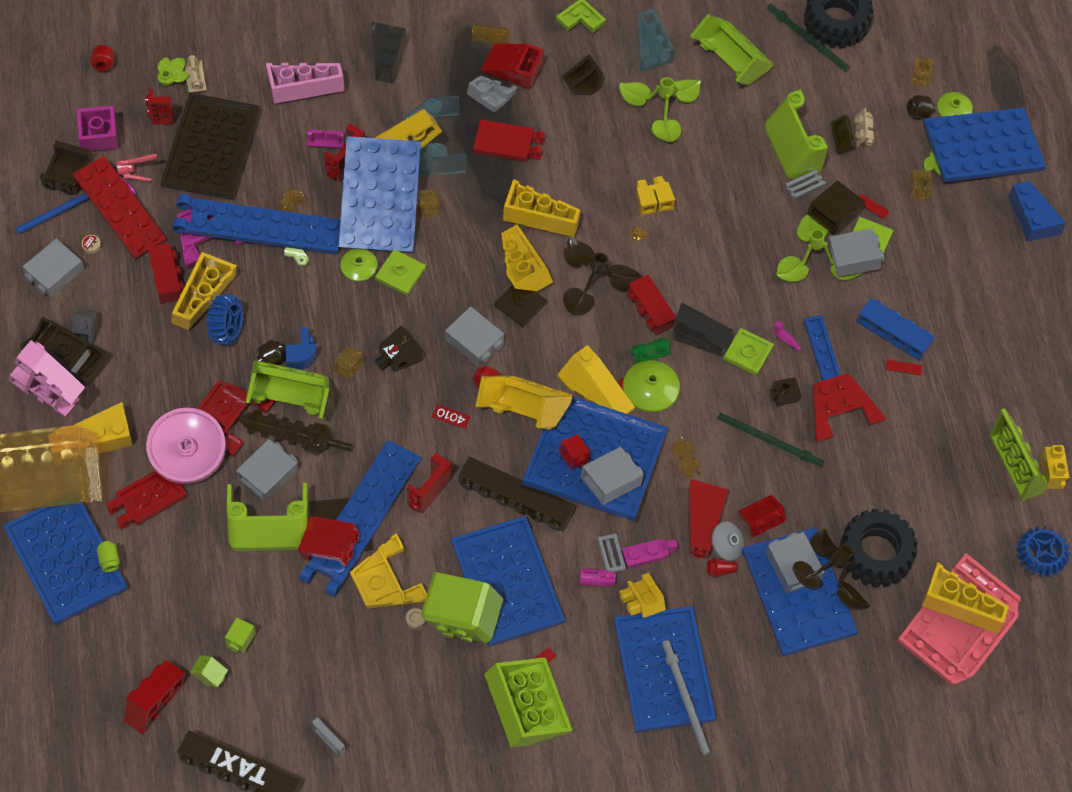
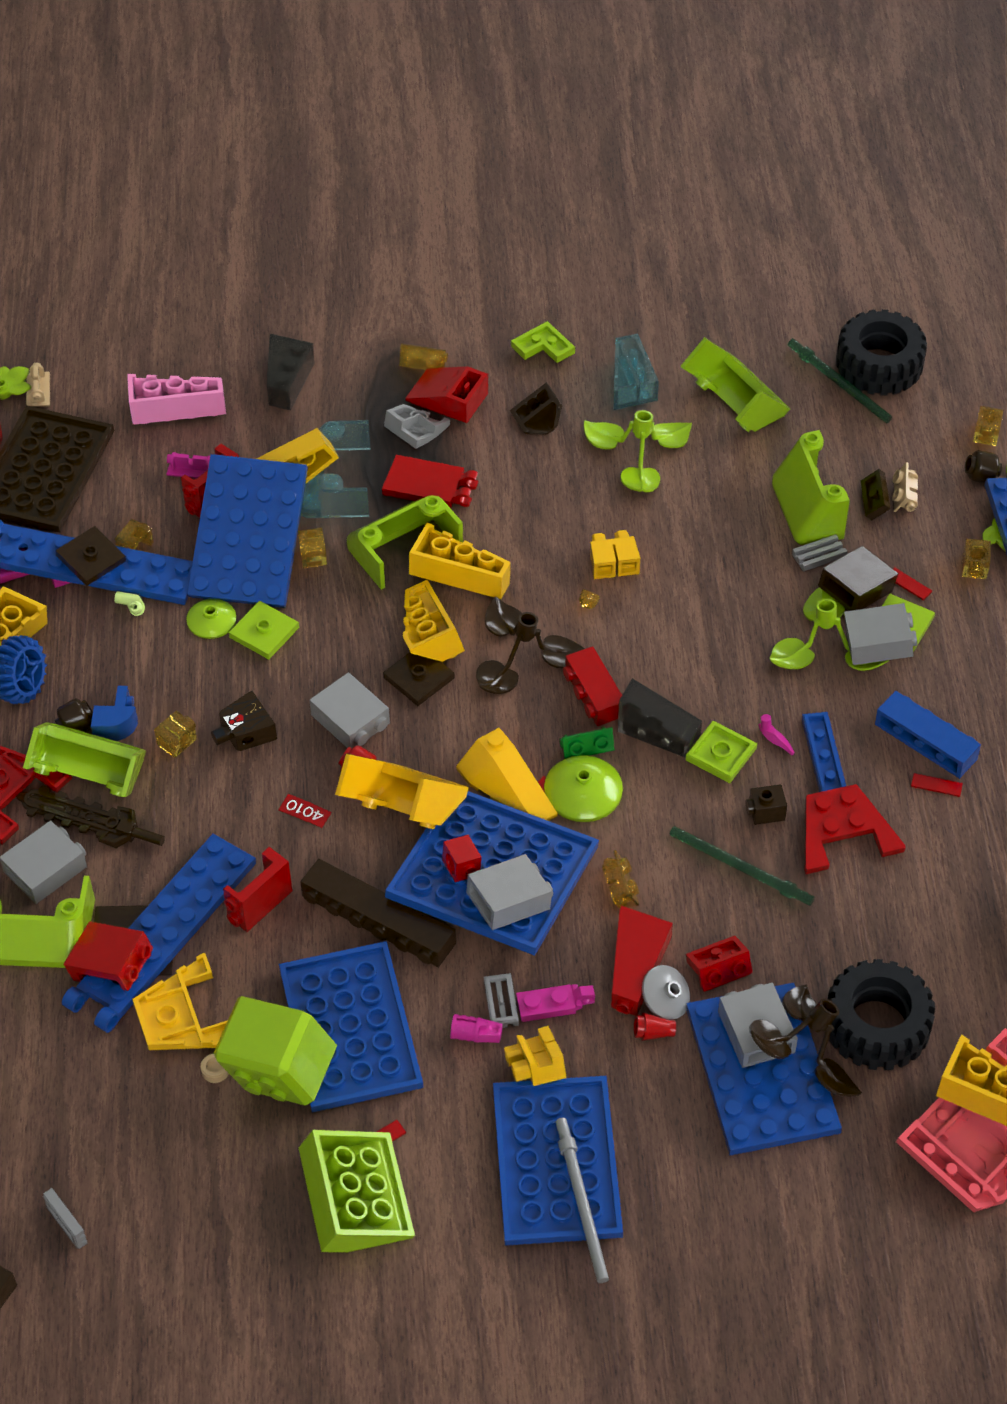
camera: 10 degrees right, 10 degrees down
(263, 221) = (90, 555): none -> dark brown plate
(472, 190) = (389, 527): none -> lime windscreen

